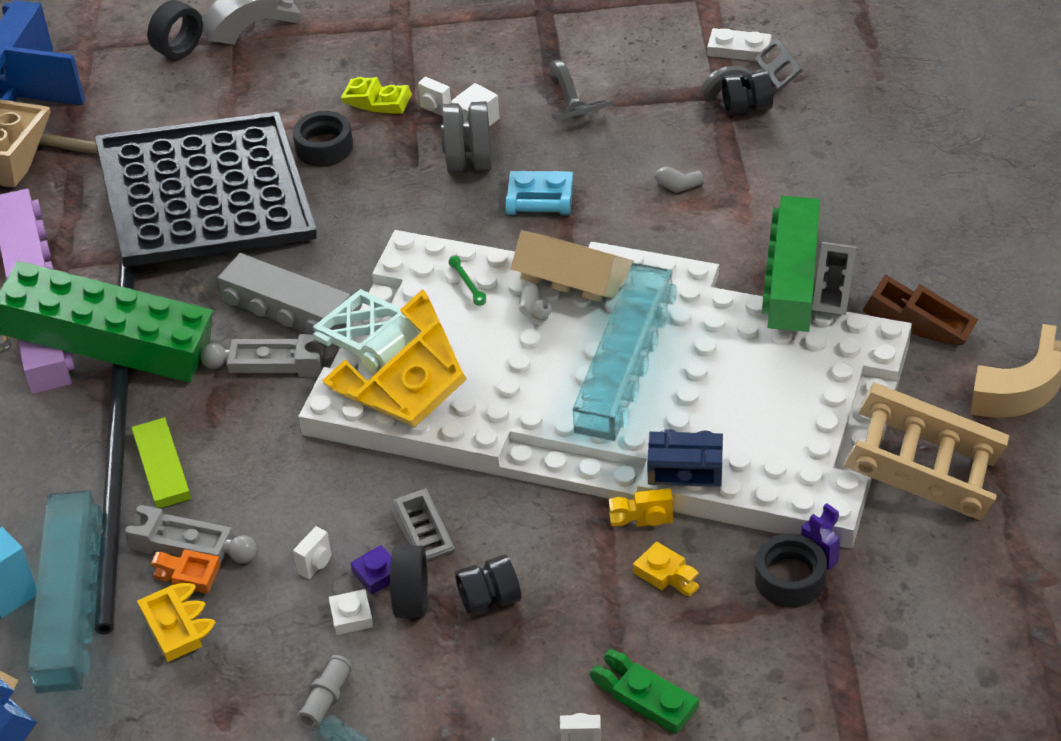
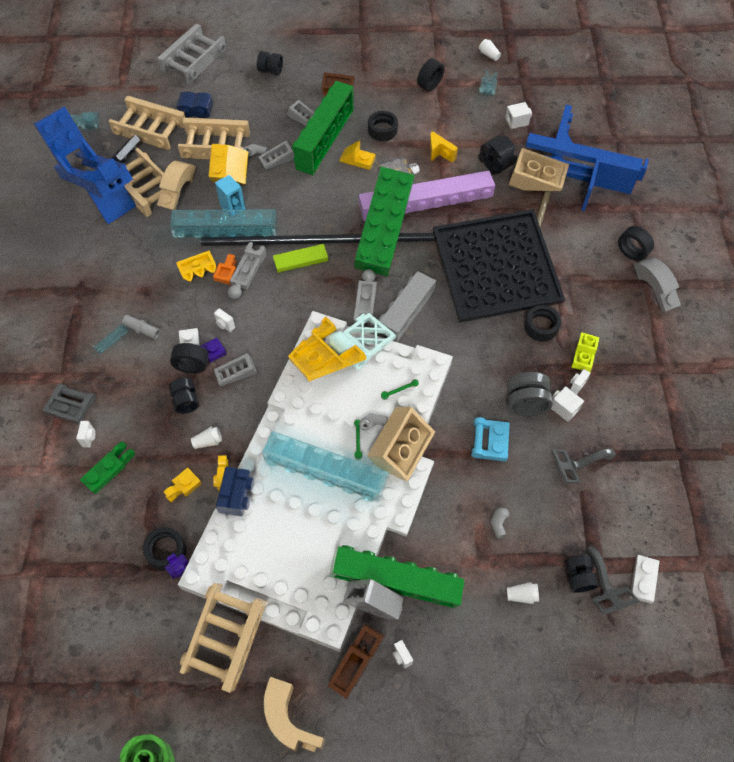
camera: 90 degrees right, 15 degrees up
(571, 543) = (207, 438): none -> white cone
(593, 322) = (358, 454): none -> green hinge
(783, 148) = (523, 593): none -> white cone
(901, 262) = (402, 655): none -> white plate

